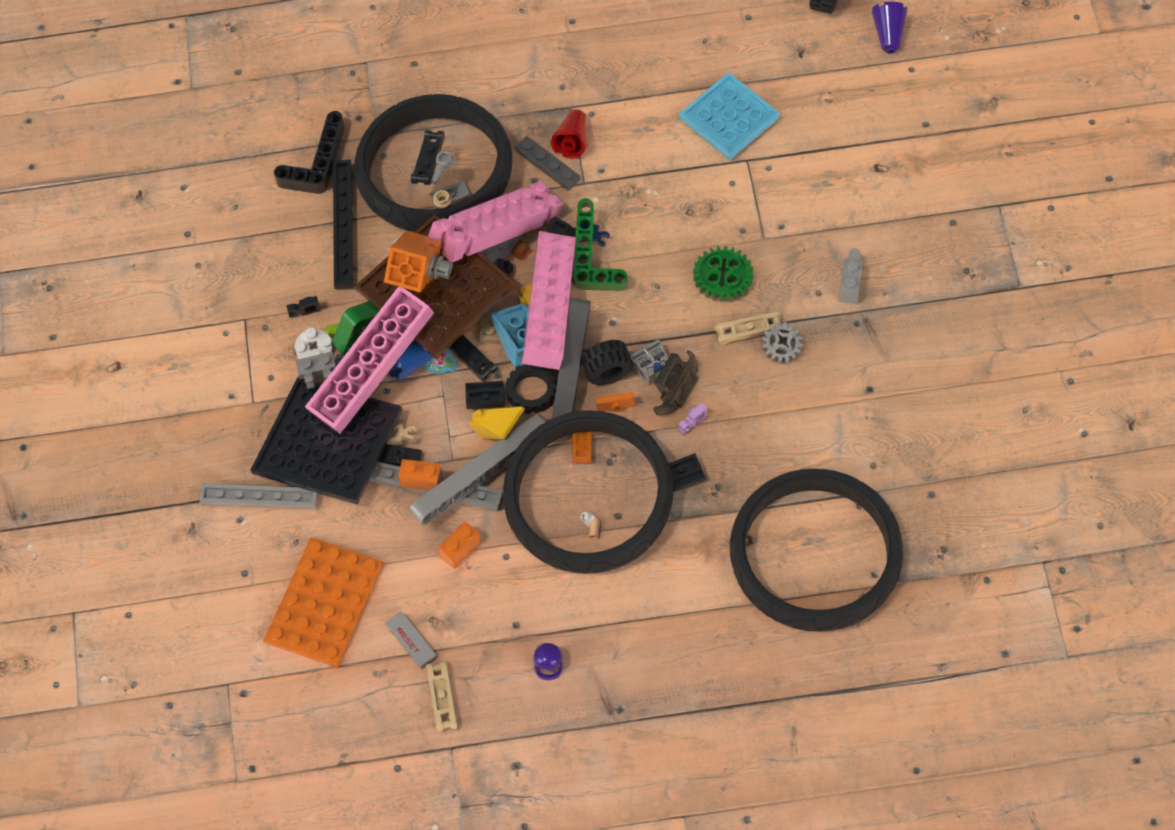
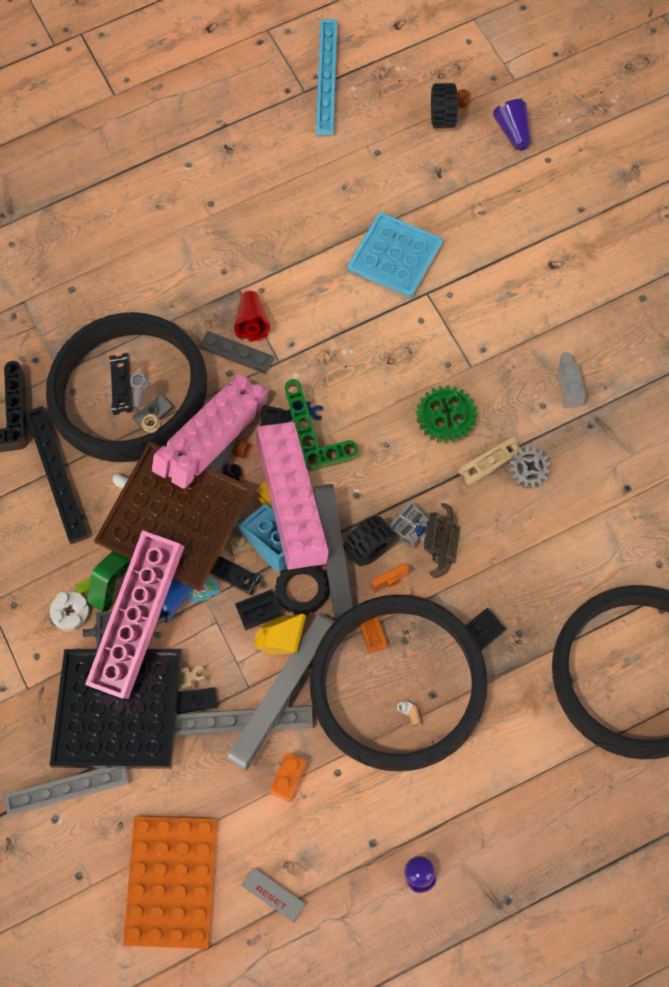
camera: 15 degrees left, 5 degrees up
(305, 306) = (47, 572): black plate -> none
(315, 366) = (79, 632): light grey plate -> none
(415, 261) = (150, 500): orange piece -> none
(419, 474) = (225, 717): orange piece -> none
(441, 696) = (325, 946): tan plate -> none
(694, 417) = (472, 568): lavender plate -> none

